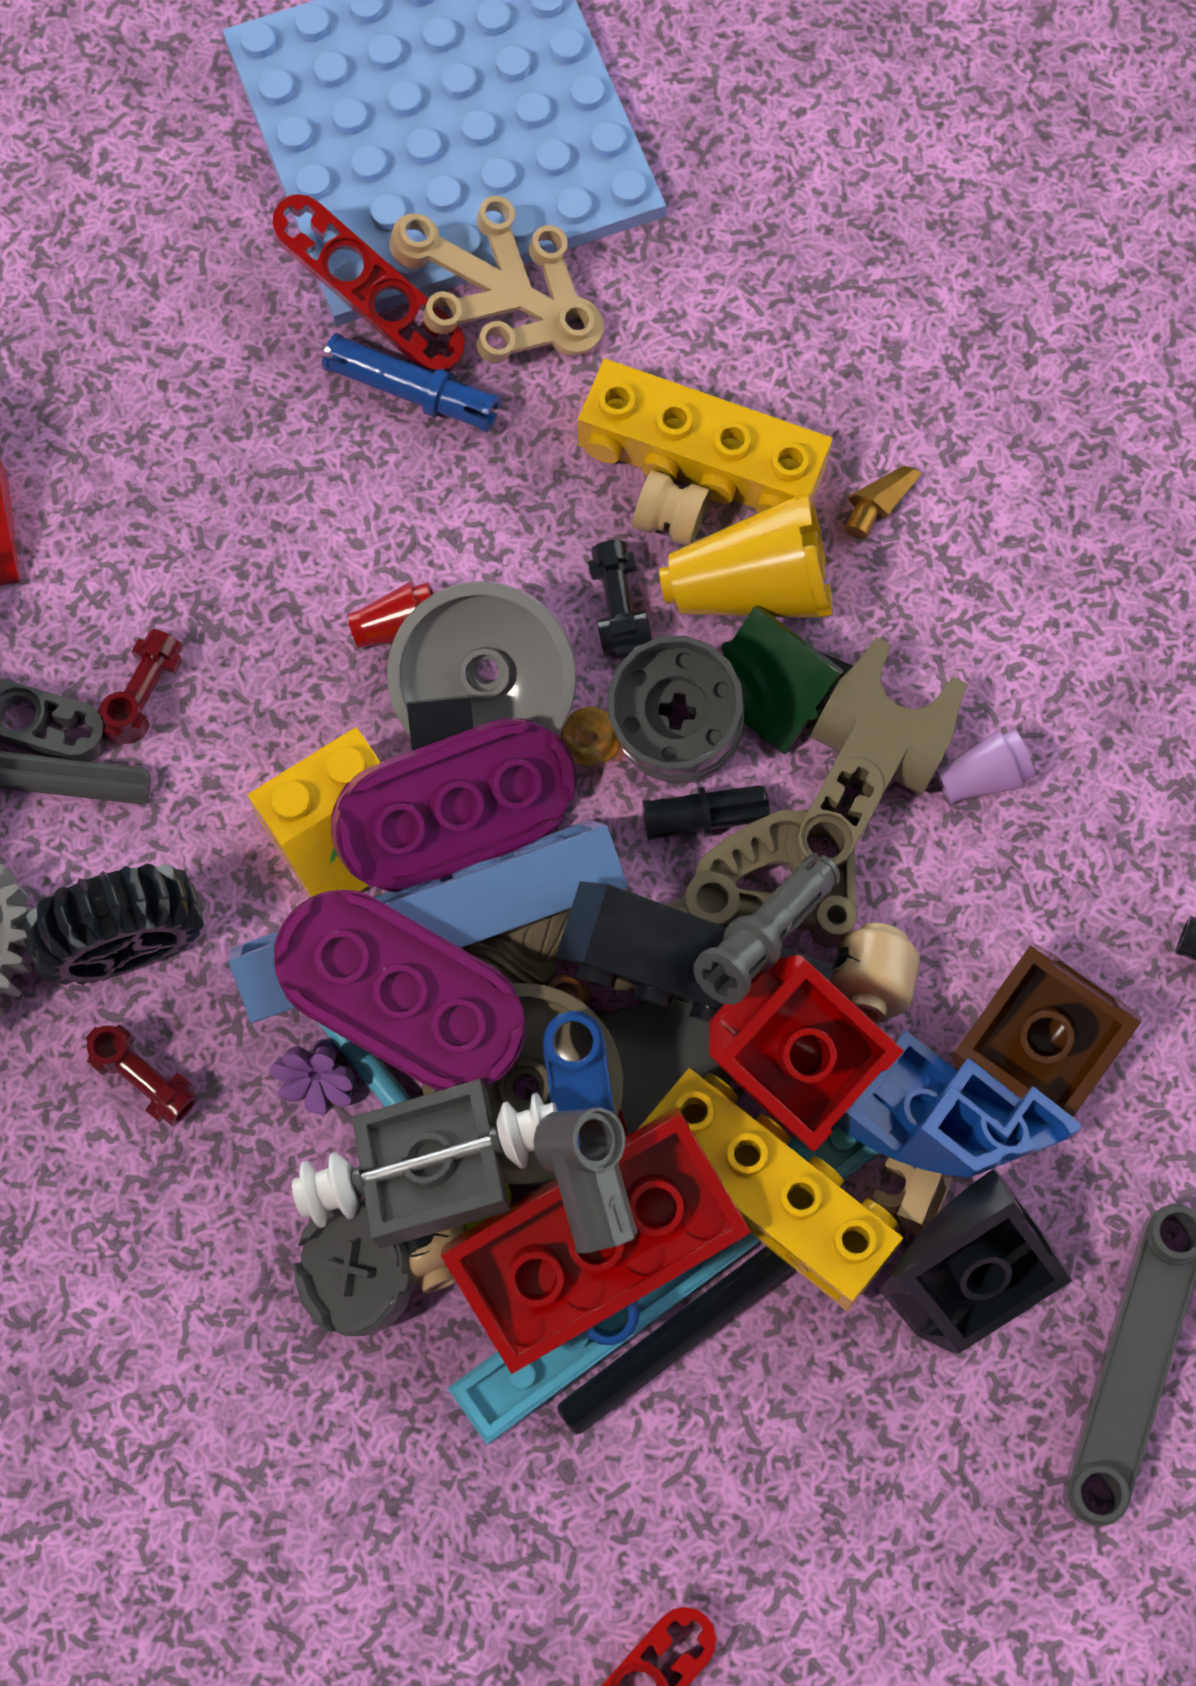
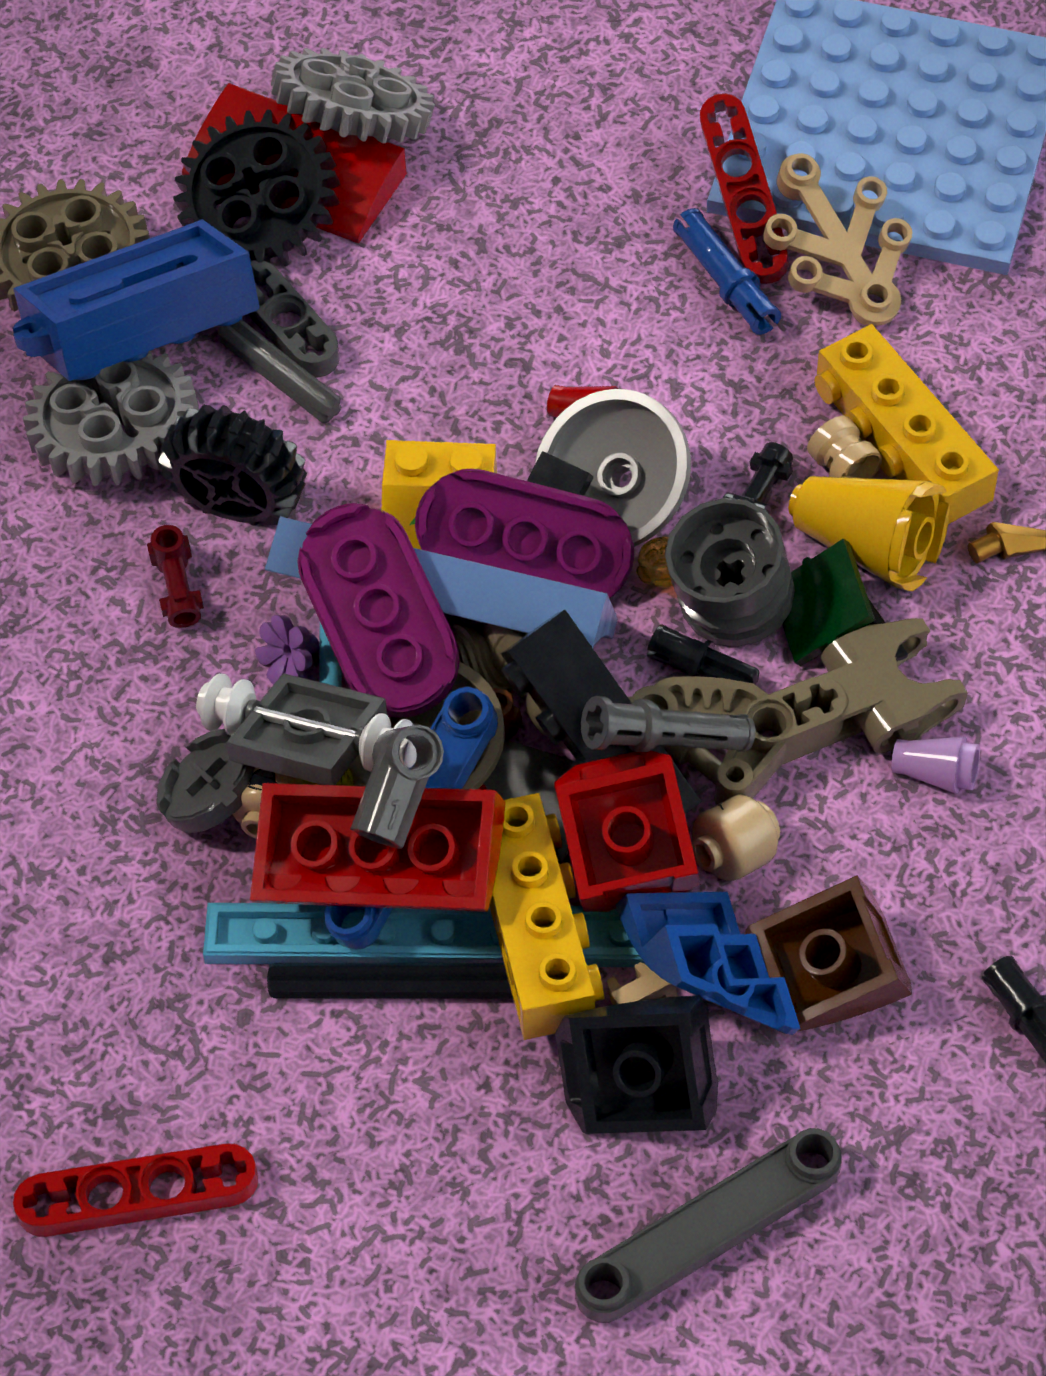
camera: 40 degrees right, 15 degrees down
(124, 709) = (355, 353): dark red bar -> none

